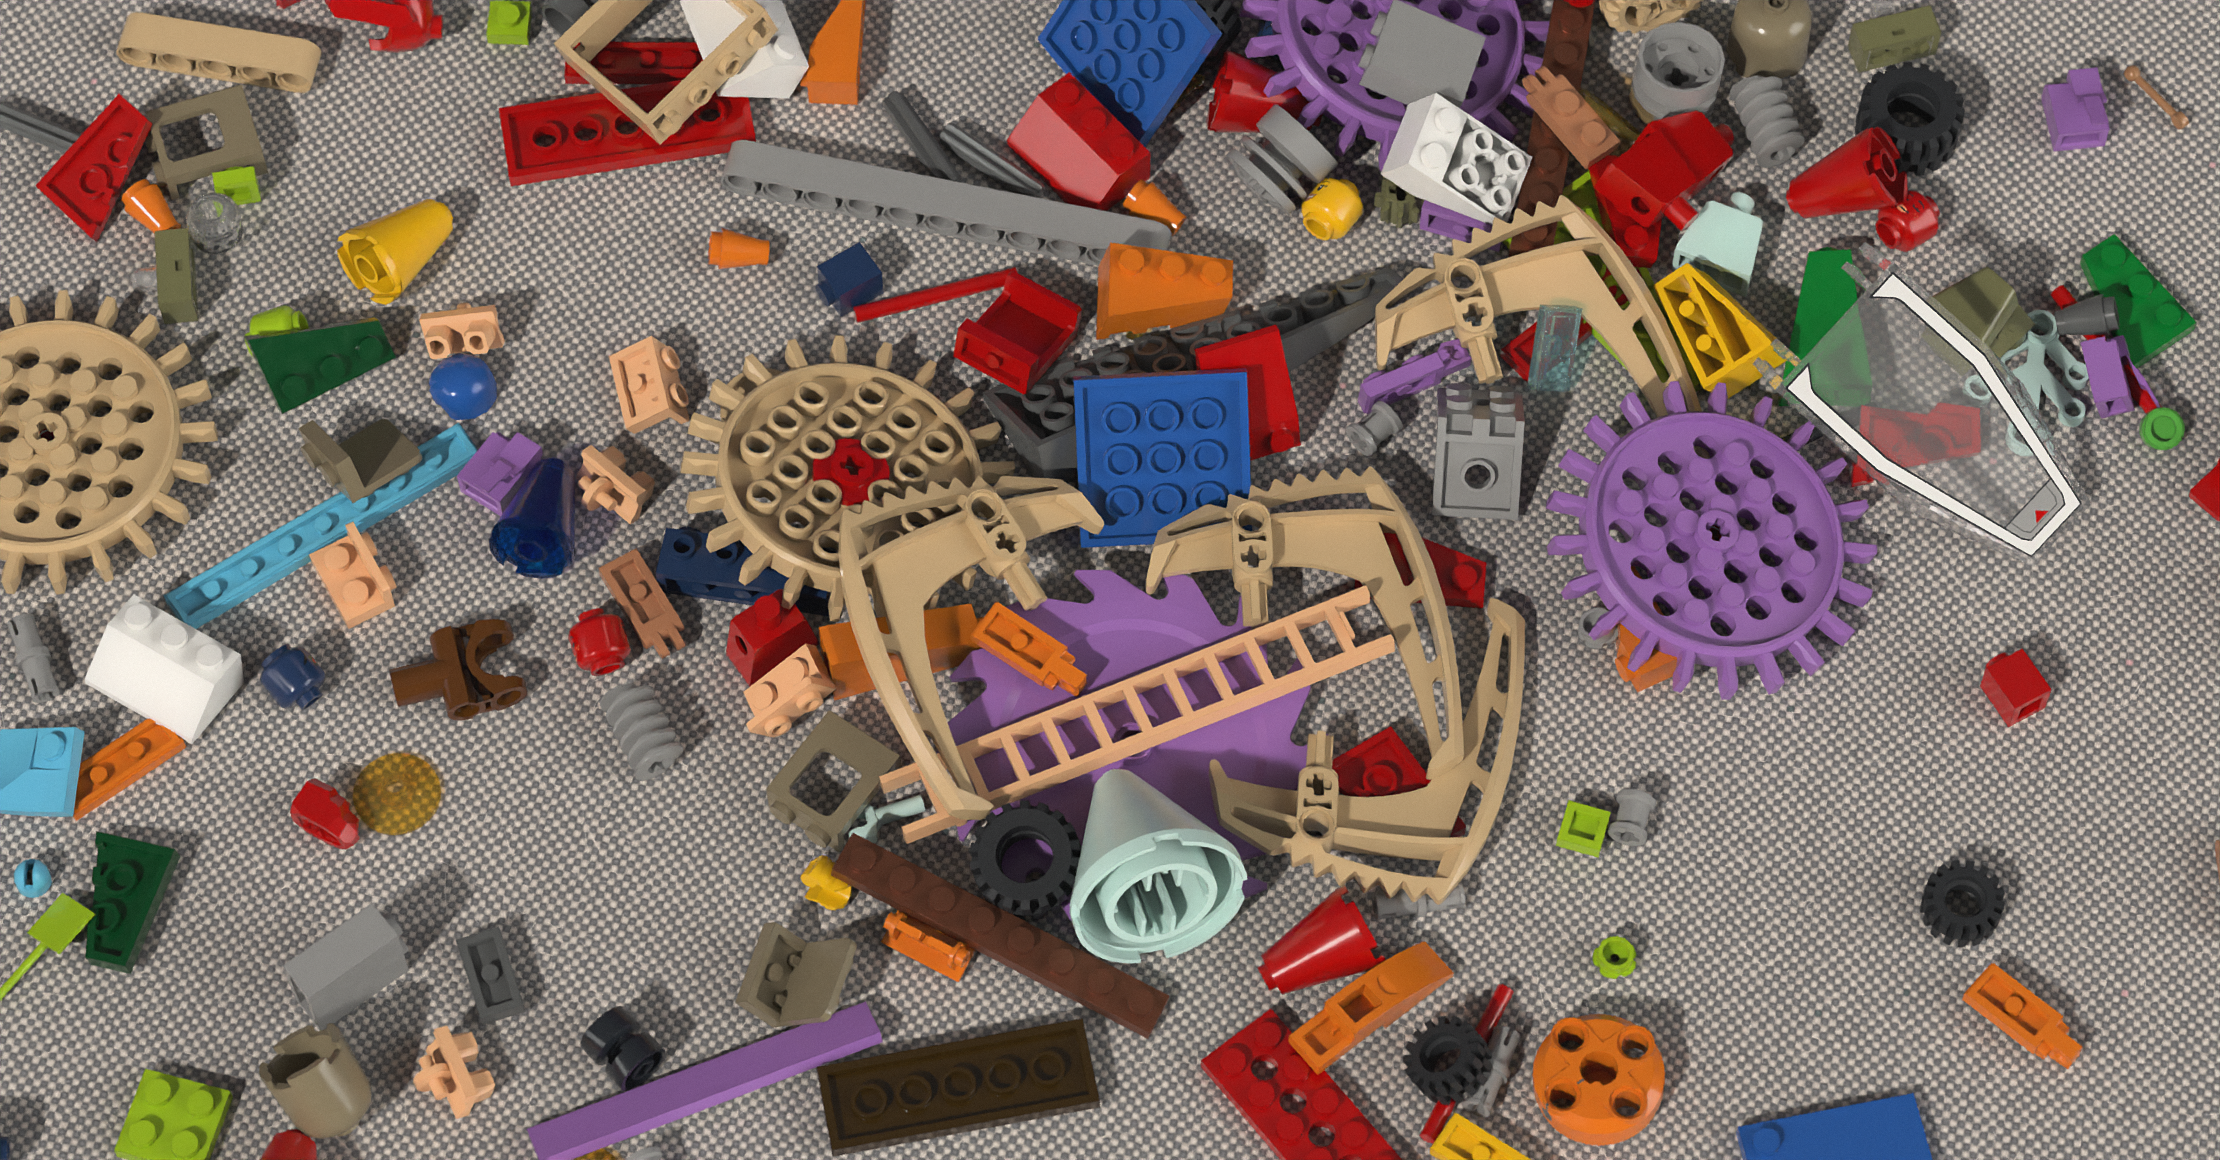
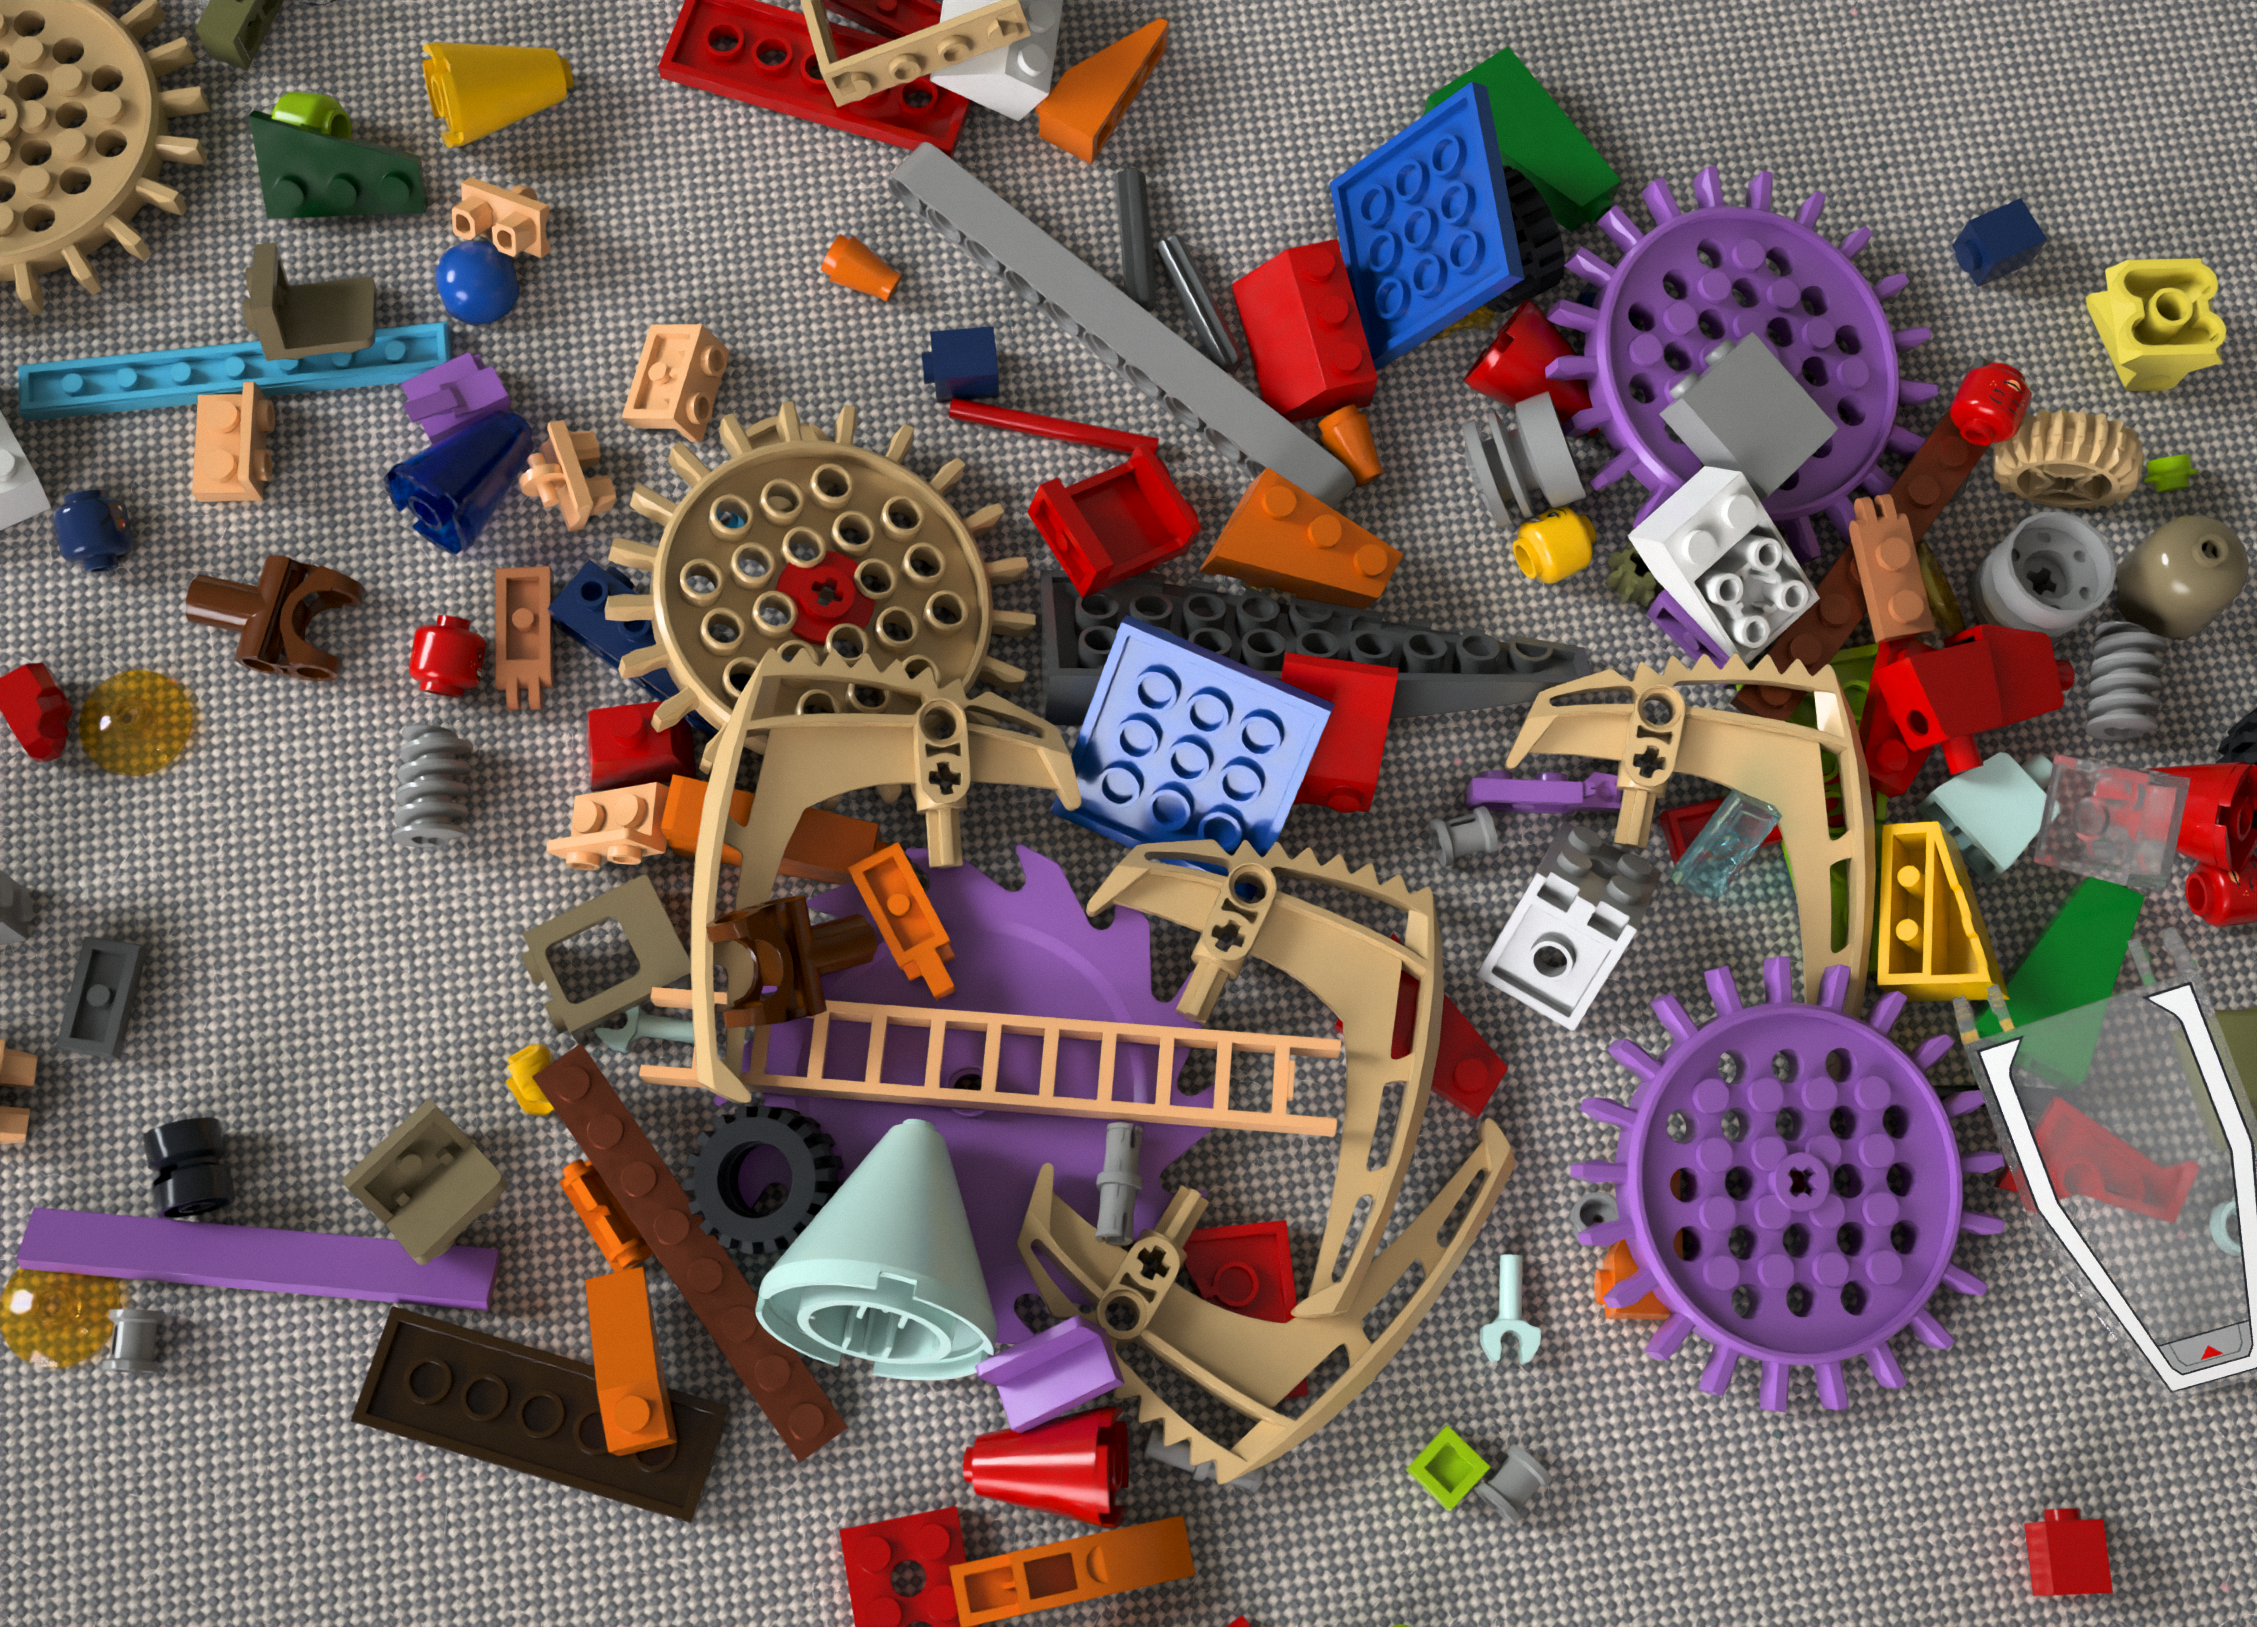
camera: 20 degrees right, 10 degrees up
(969, 702) = (790, 956): none -> reddish brown connector
(1004, 1019) = (628, 1363): none -> orange slope
(1267, 748) = (1119, 1184): none -> light grey pin
(1290, 878) = (1053, 1372): none -> medium lavender panel
(1573, 718) = (1510, 1315): none -> light aqua bar
(1801, 208) = (2111, 821): none -> clear brick

